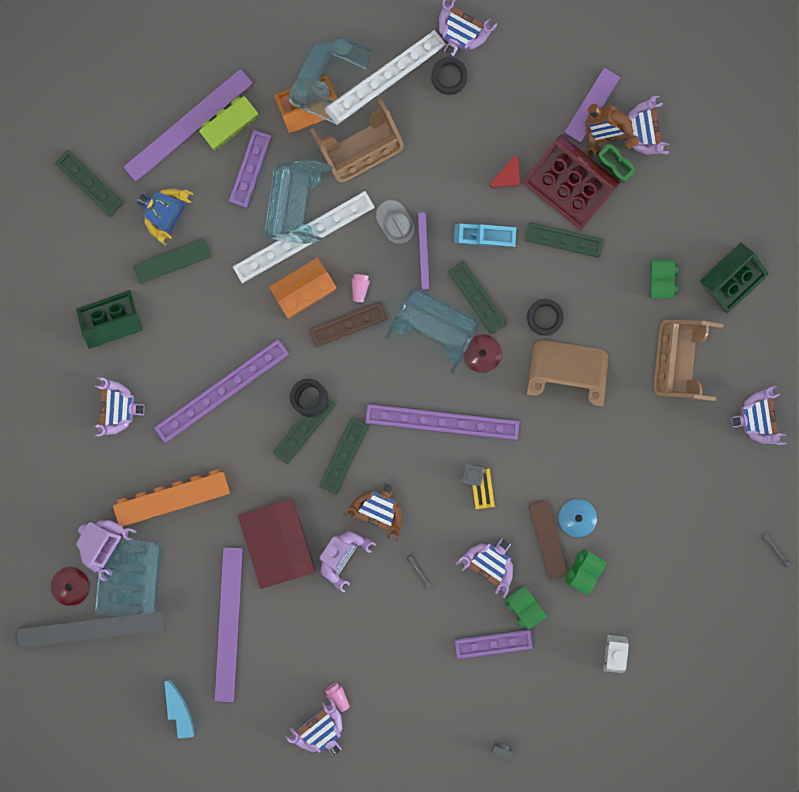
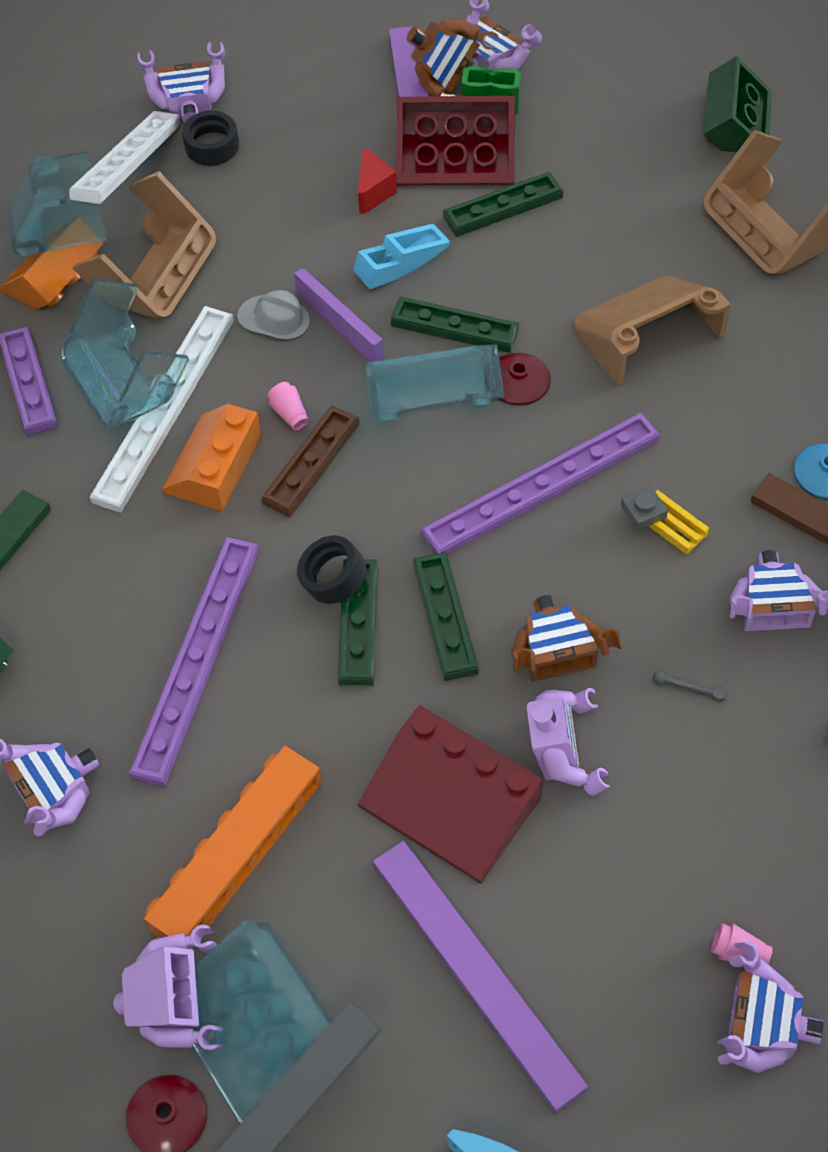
camera: 30 degrees left, 30 degrees down
(559, 313) = (559, 267): black tyre -> none
(663, 279) = (659, 162): green brick -> none

